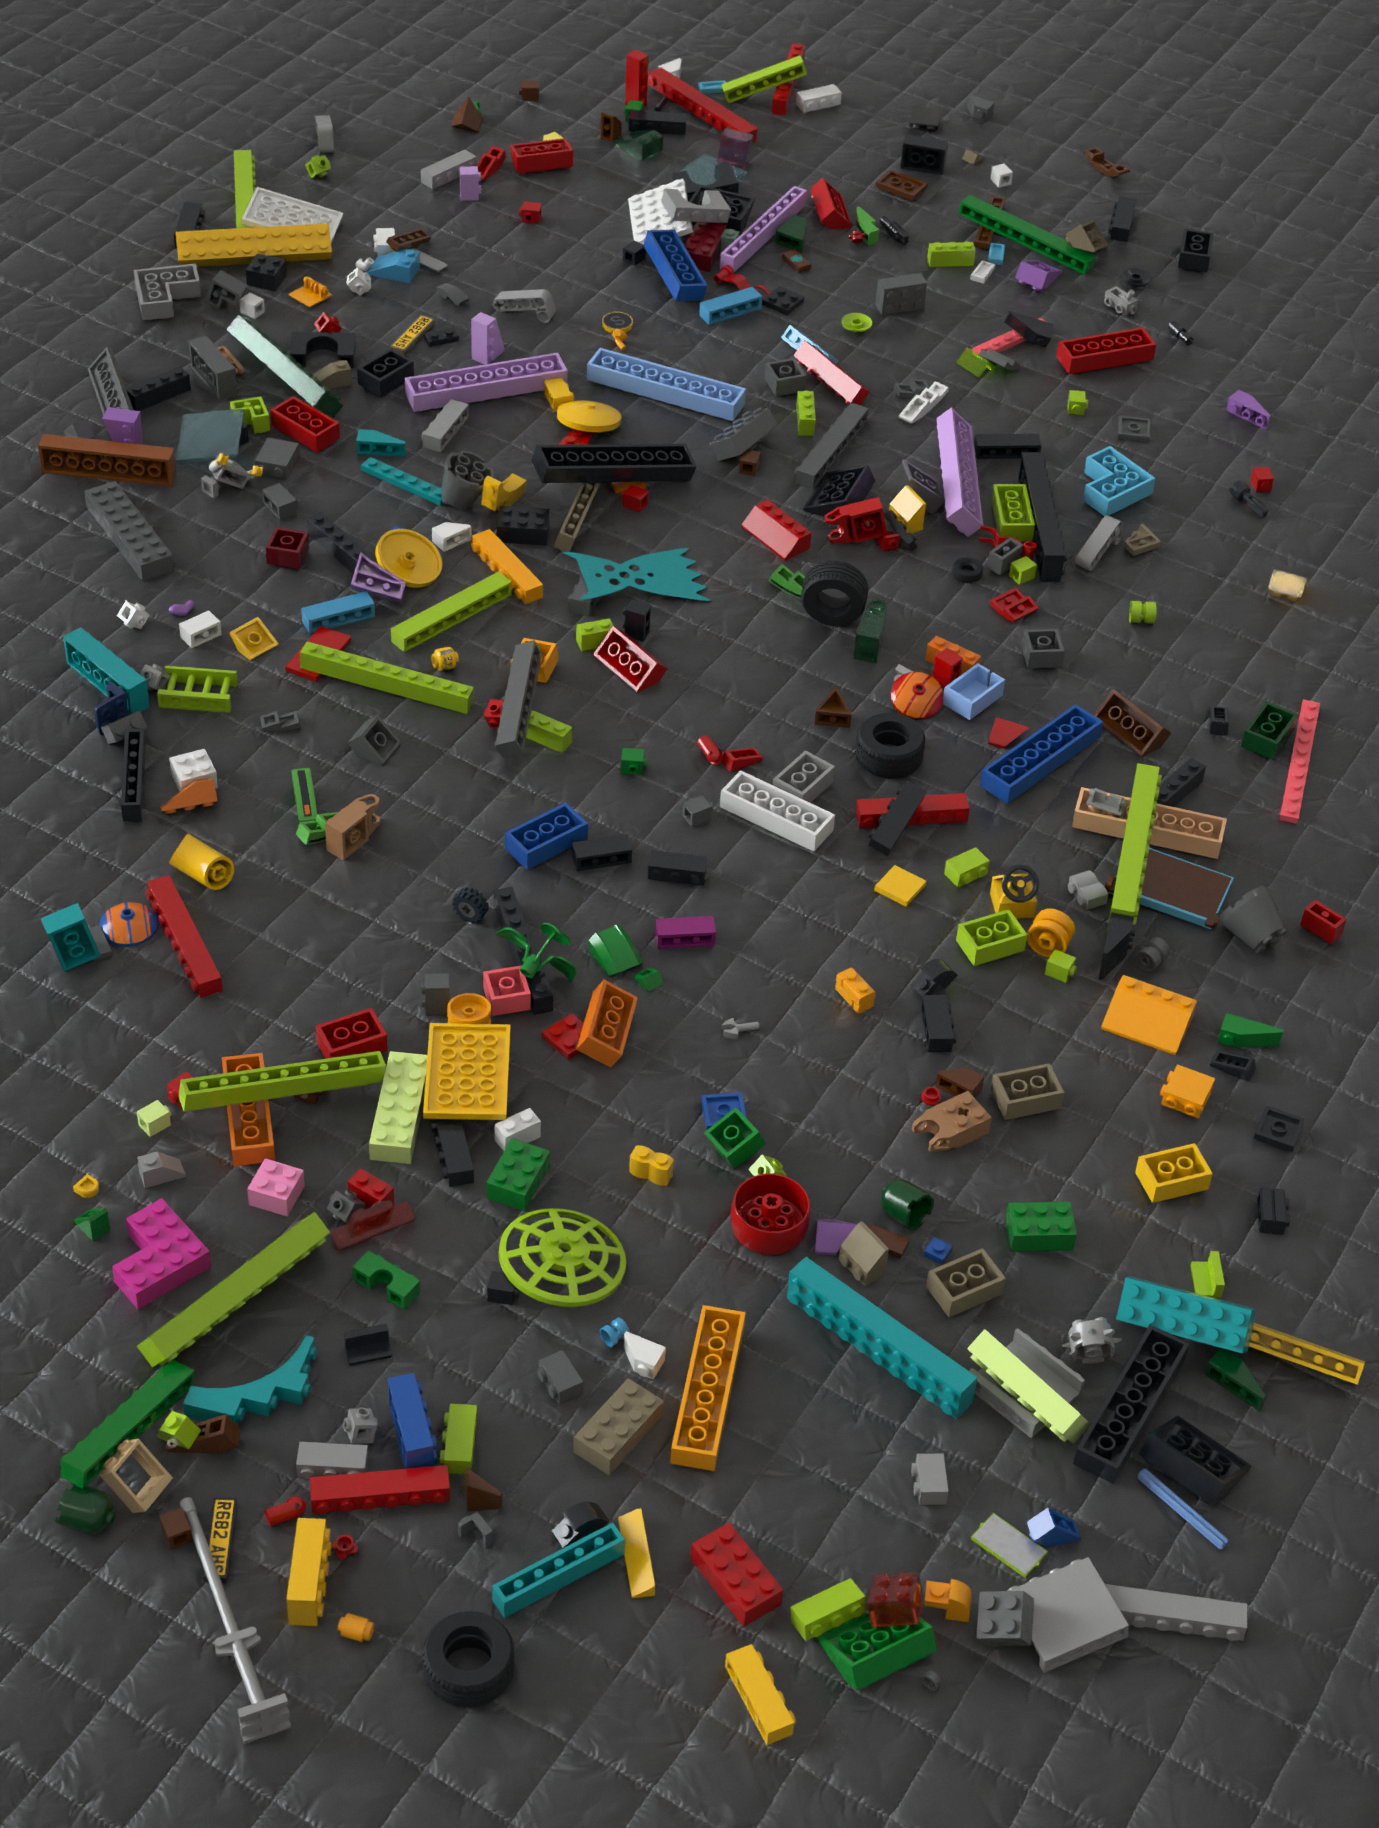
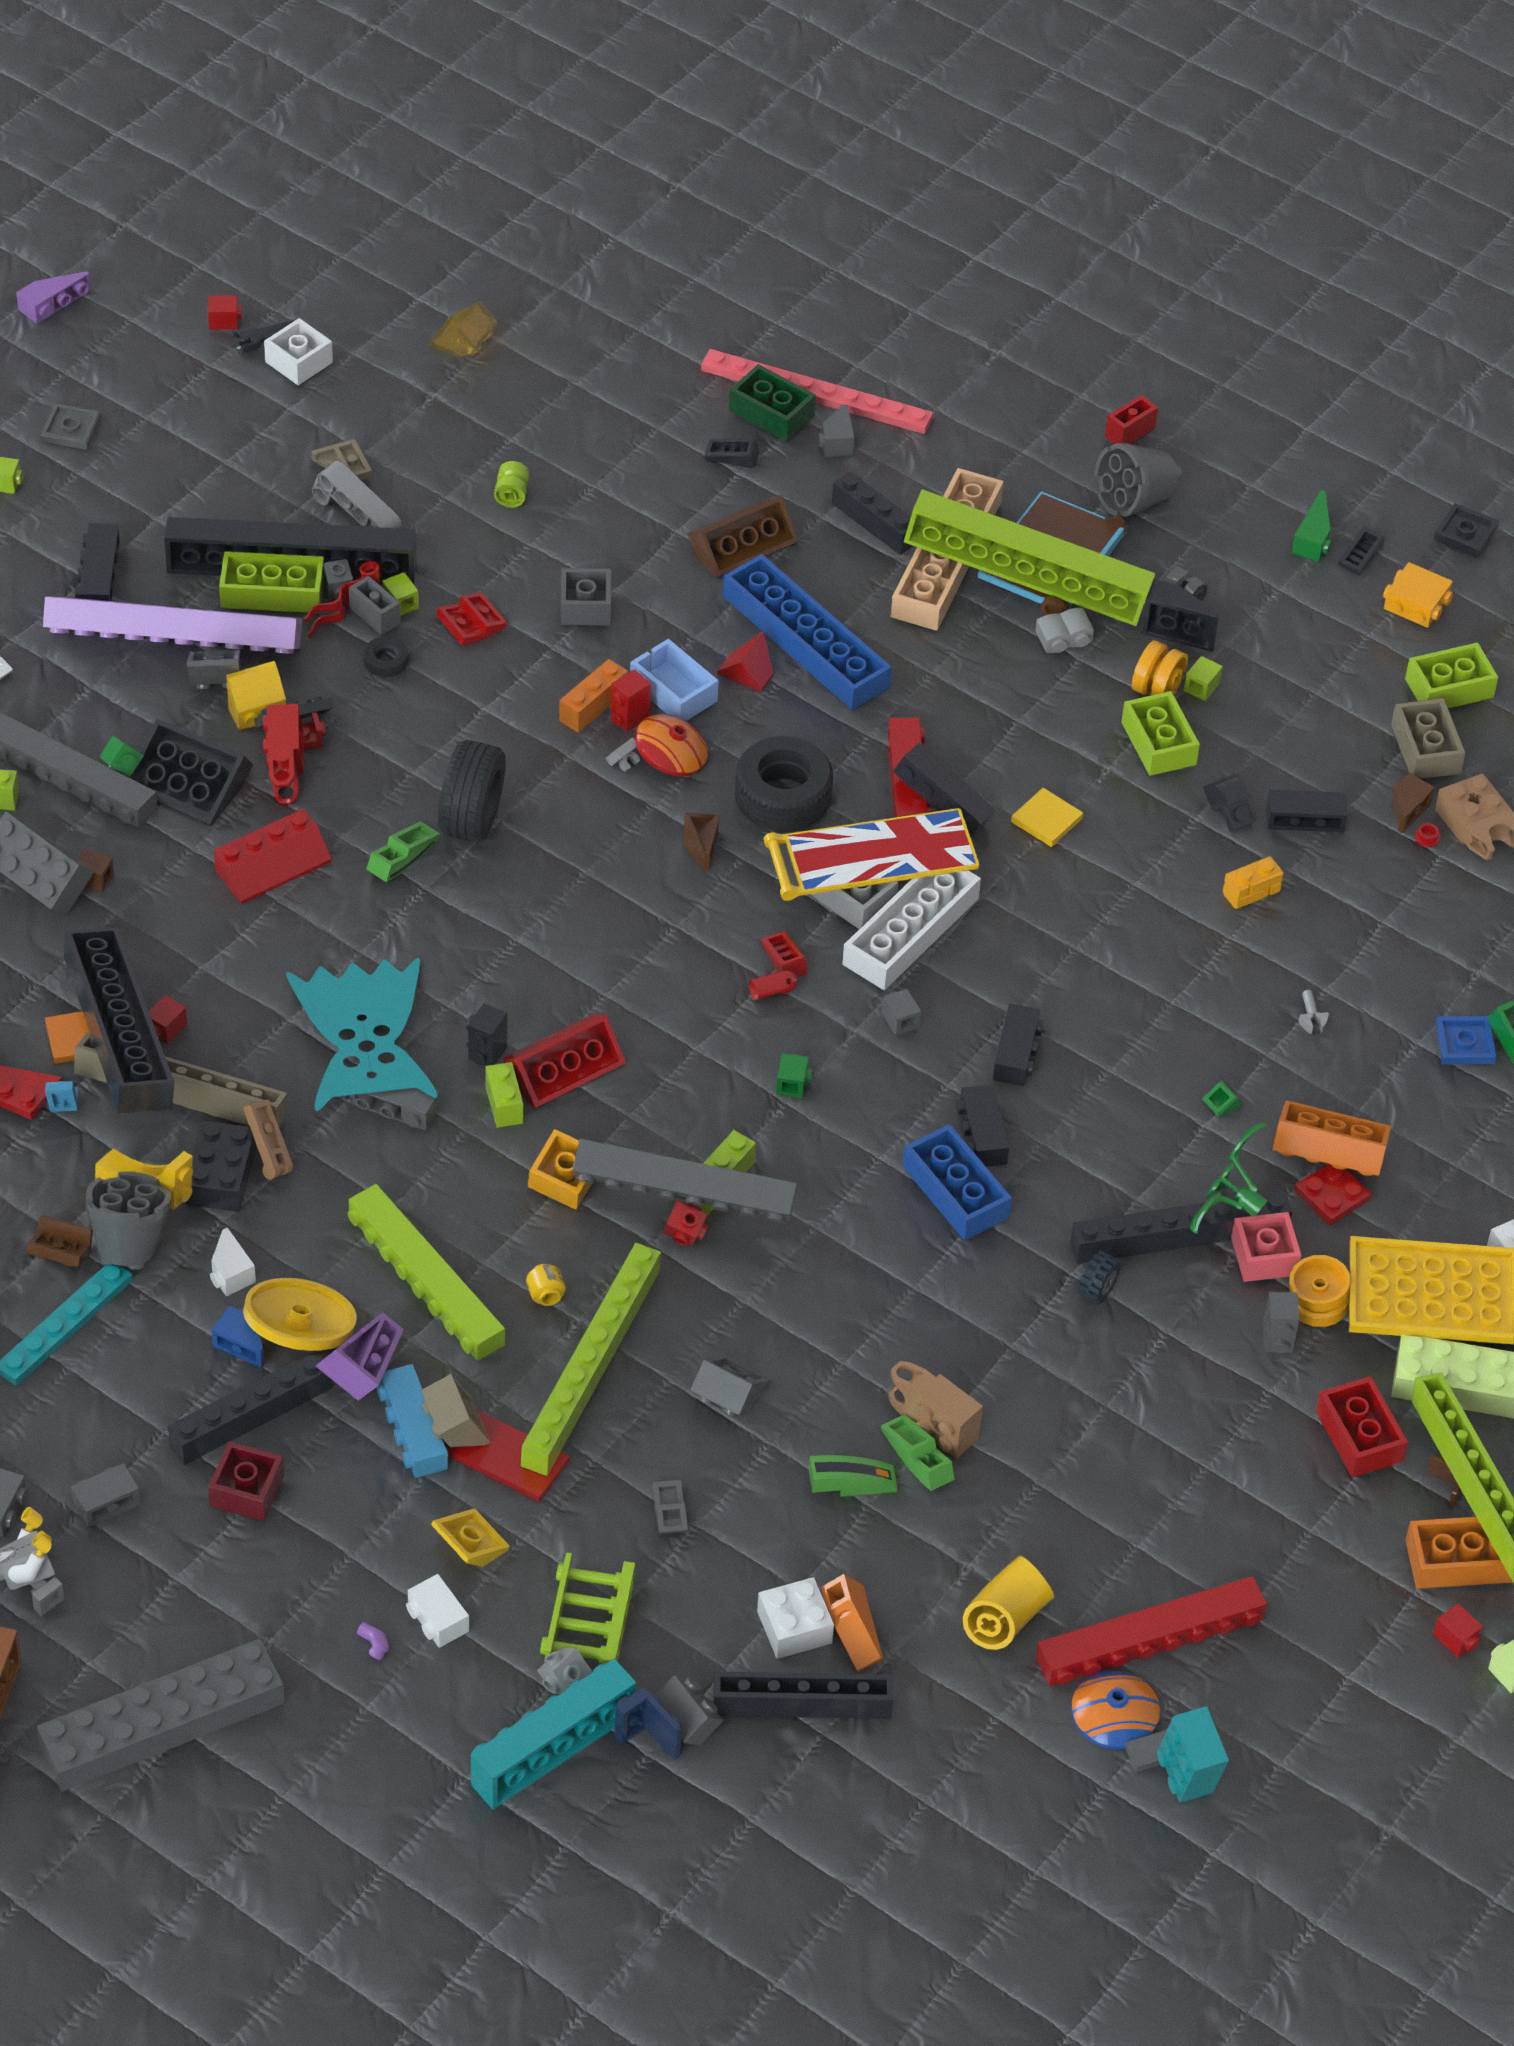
camera: 85 degrees left, 5 degrees up
(133, 615) = (401, 1701): white brick -> none
(334, 619) = (454, 1414): none -> dark tan slope
(502, 560) = (317, 1194): light orange brick -> none
(539, 535) = (268, 1139): none -> medium nougat plate
(614, 950) = (1179, 1129): green slope -> none
(685, 932) = (1142, 1047): magenta brick -> none
(826, 781) = (873, 852): none -> flag
(841, 460) = (121, 756): none -> green brick
(871, 632) = (543, 769): clear green piece -> none
(967, 867) = (1020, 742): lime brick -> none
(1015, 892) = (1082, 699): piece -> none
(1024, 534) = (336, 575): none -> dark grey bracket
(1098, 1108) = (1456, 674): none -> lime brick
(1112, 804) = (934, 572): light grey hinge -> none
(1116, 481) = (215, 452): medium azure brick -> none
(1149, 1015) = (1286, 610): light orange slope -> none
(1233, 510) = (298, 351): none -> white brick
(1255, 768) = (837, 434): none -> dark grey slope

